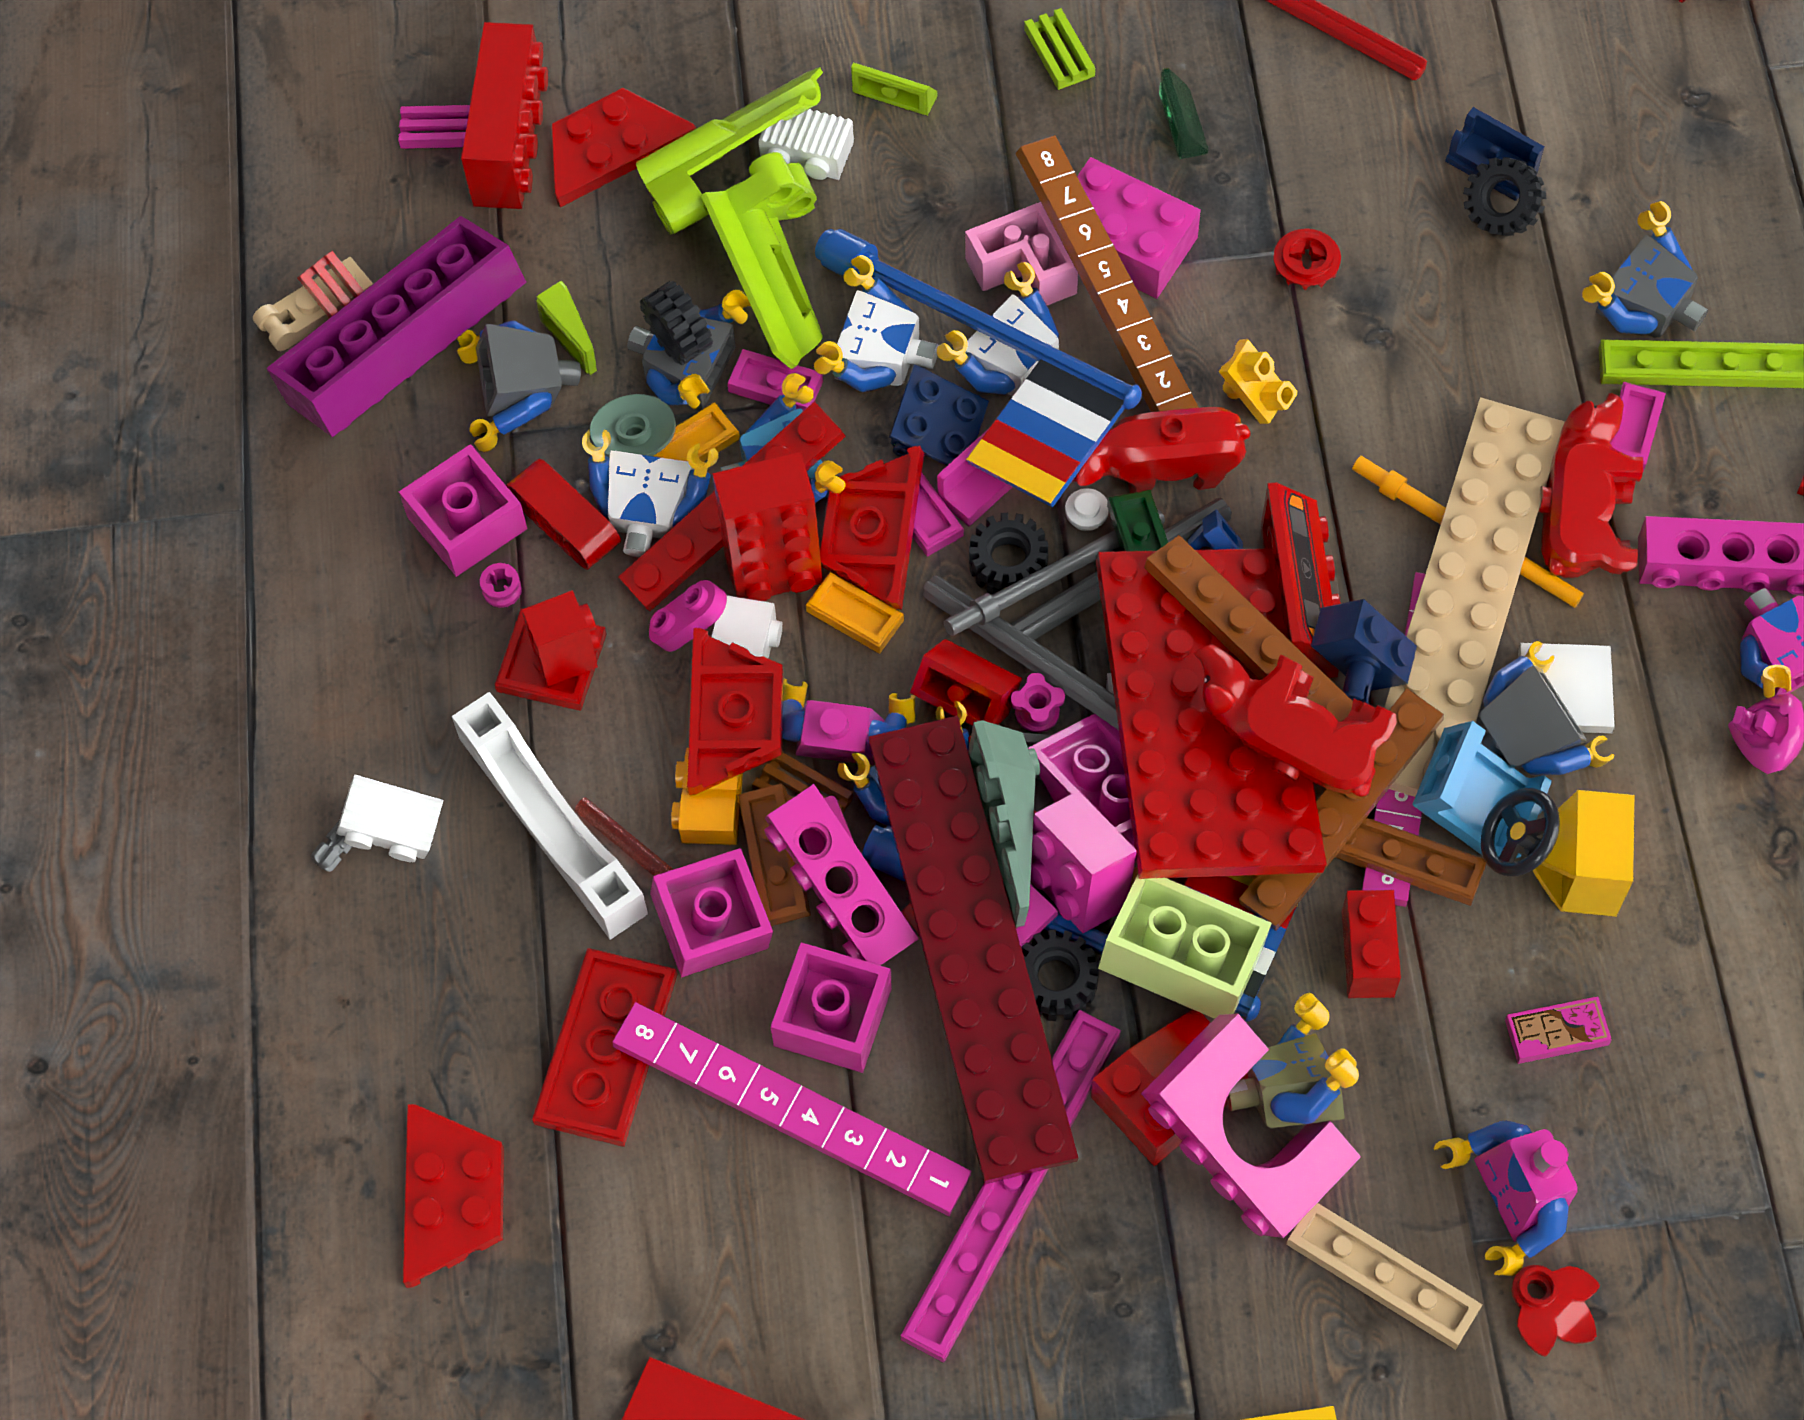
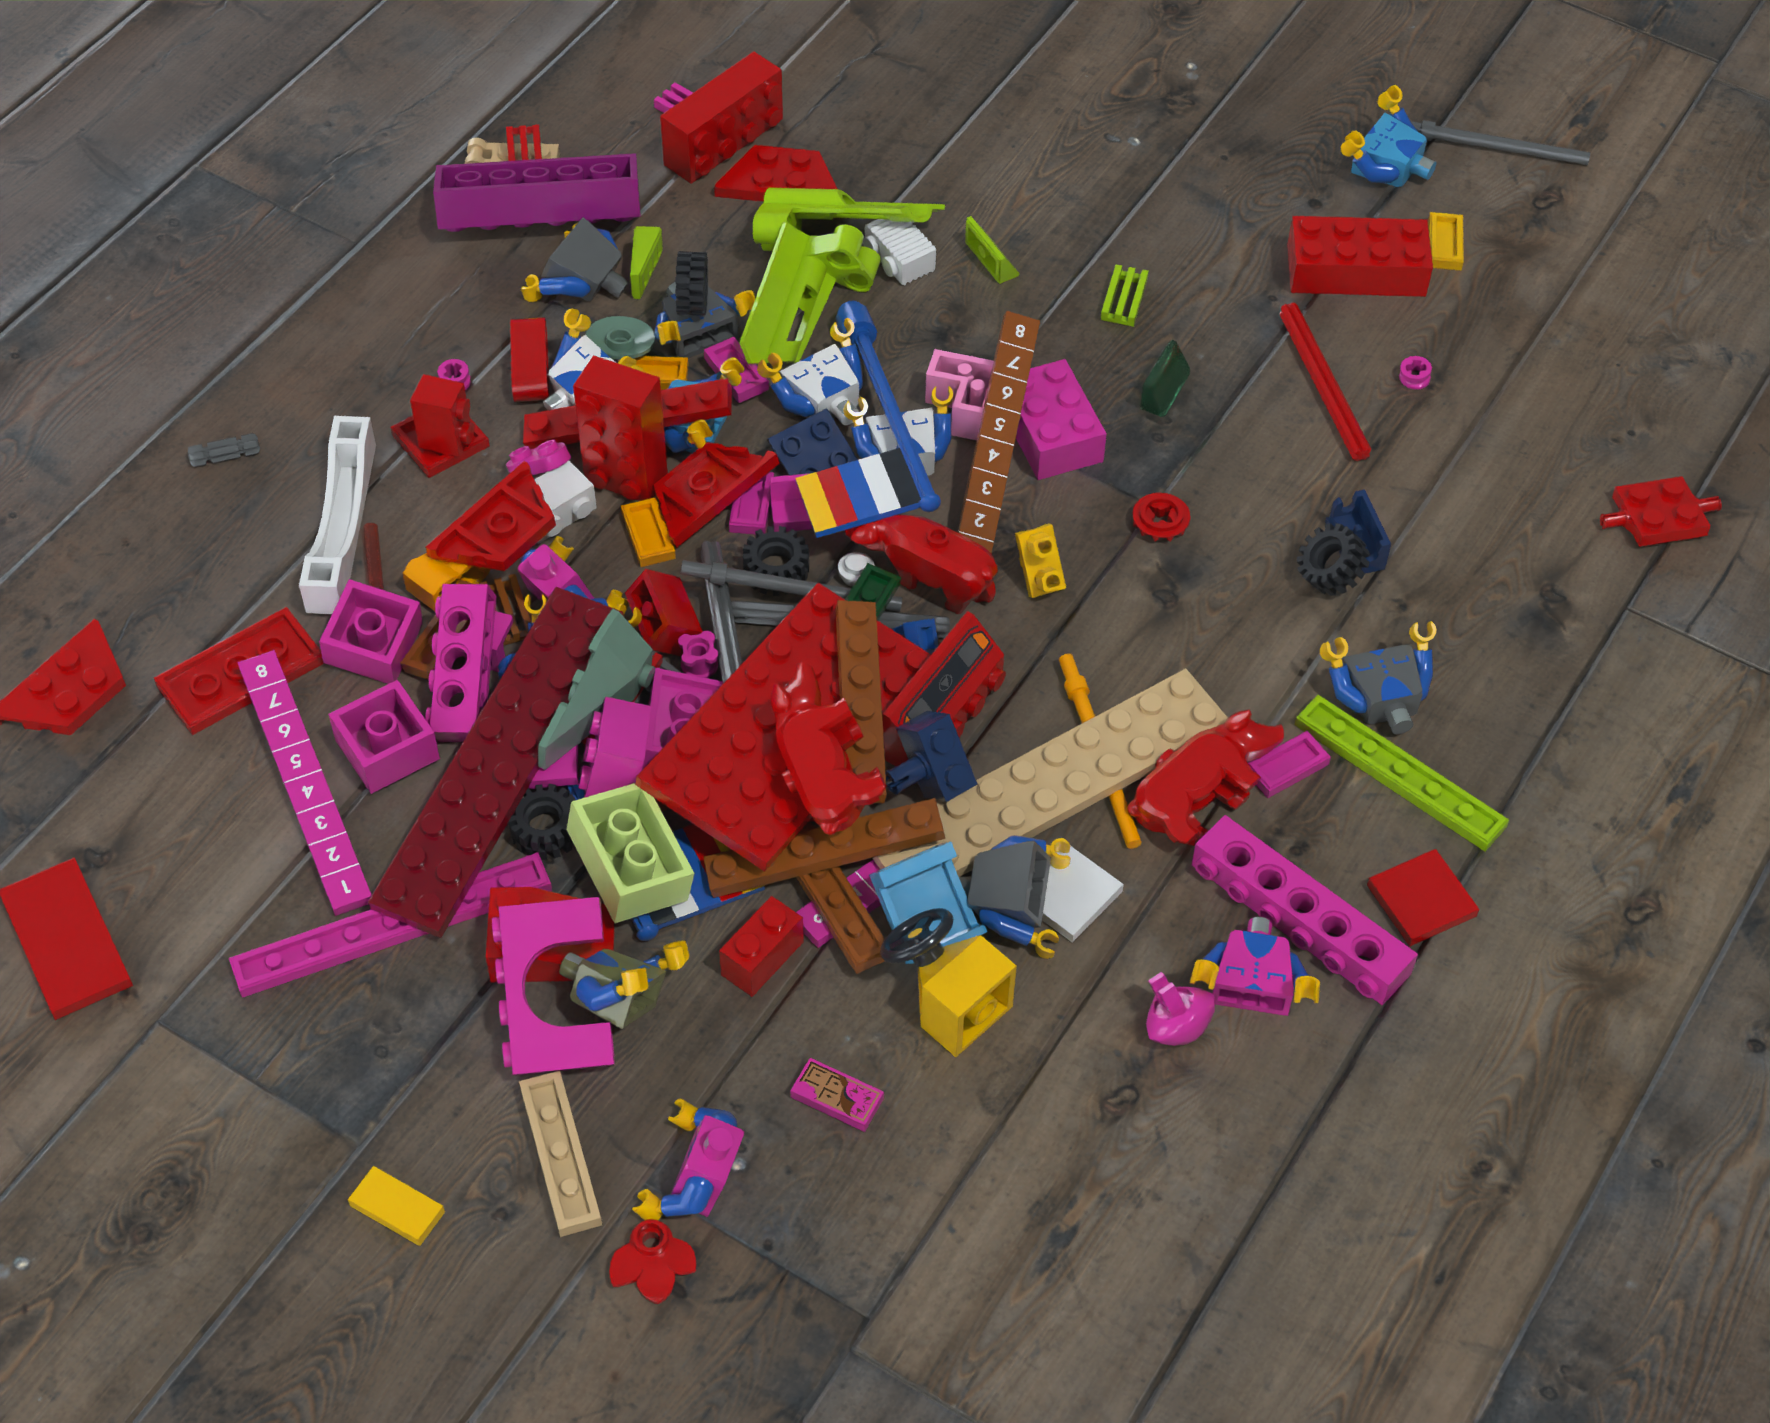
camera: 35 degrees right, 10 degrees down
(389, 819) = (247, 452): white brick -> none
(463, 510) = (469, 316): dark pink brick -> none

